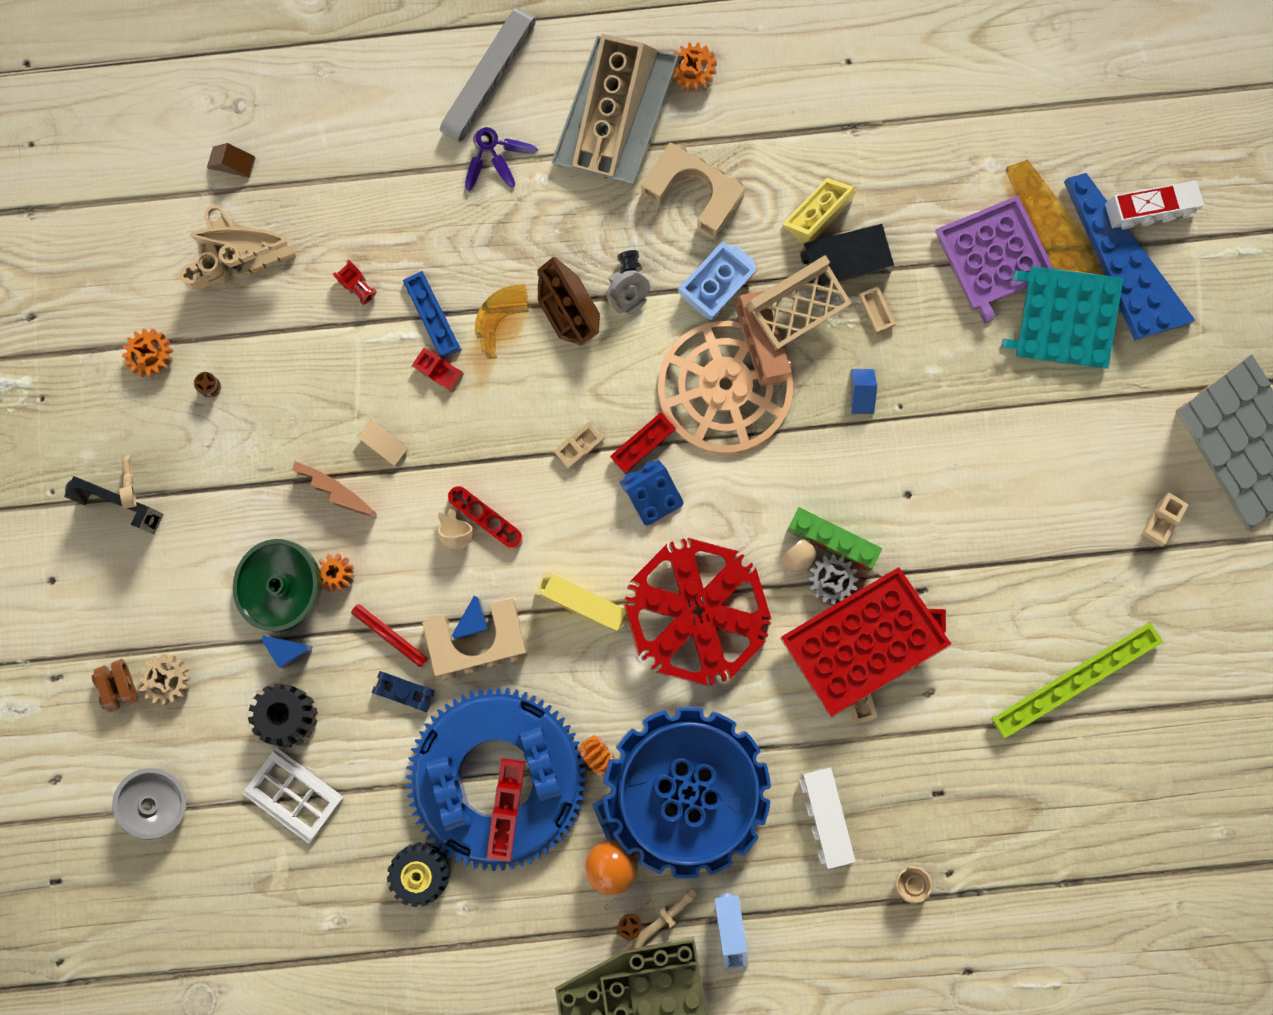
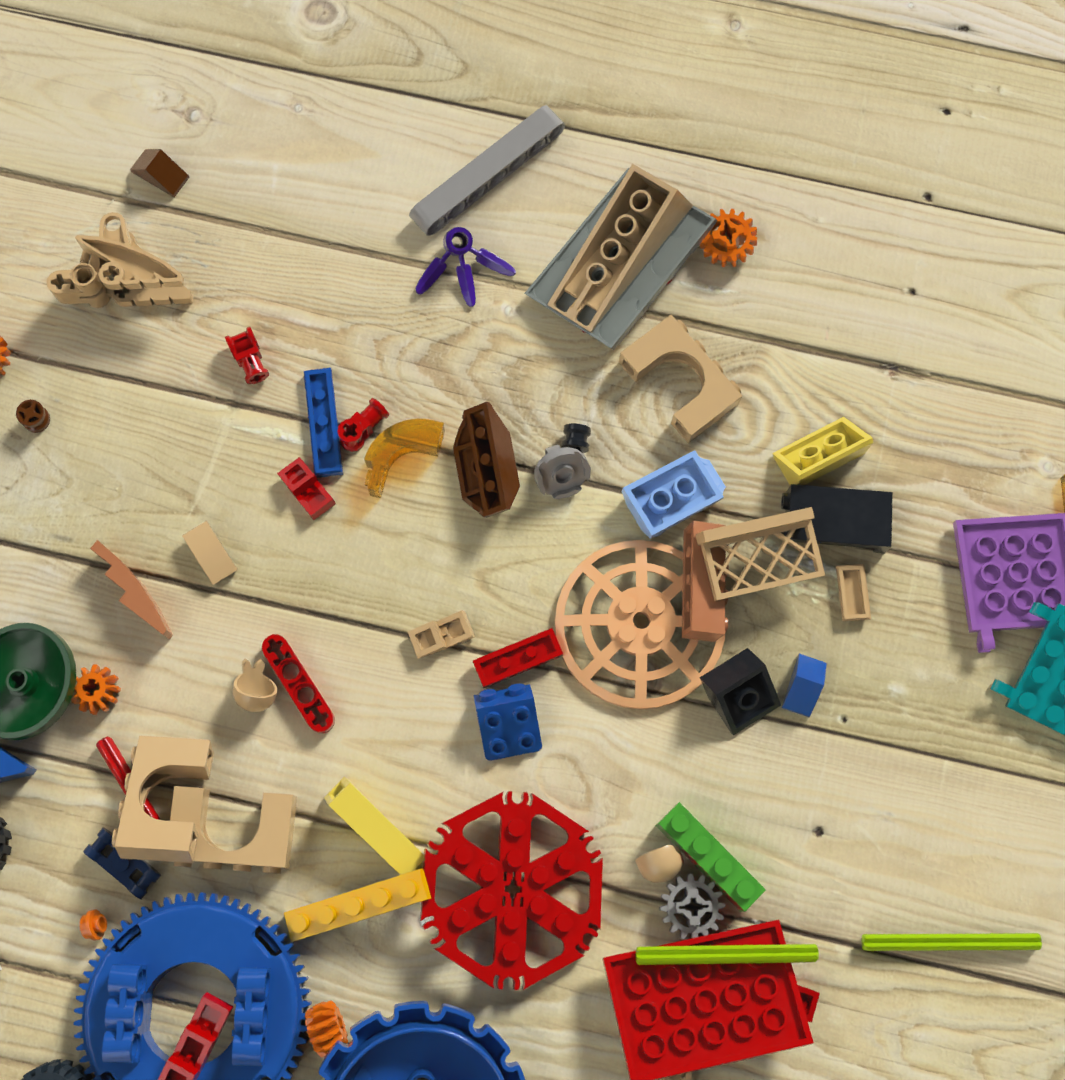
camera: 10 degrees right, 5 degrees down
(399, 742) = (93, 925): none -> orange plate
(400, 610) = (153, 762): none -> tan arch
(463, 307) = (361, 425): none -> red connector
(472, 621) = (236, 805): blue slope -> none
(588, 661) = (357, 905): none -> yellow plate
(817, 410) = (741, 690): none -> black slope
(869, 603) = (727, 954): none -> lime axle
(1029, 541) = (951, 942): none -> lime axle

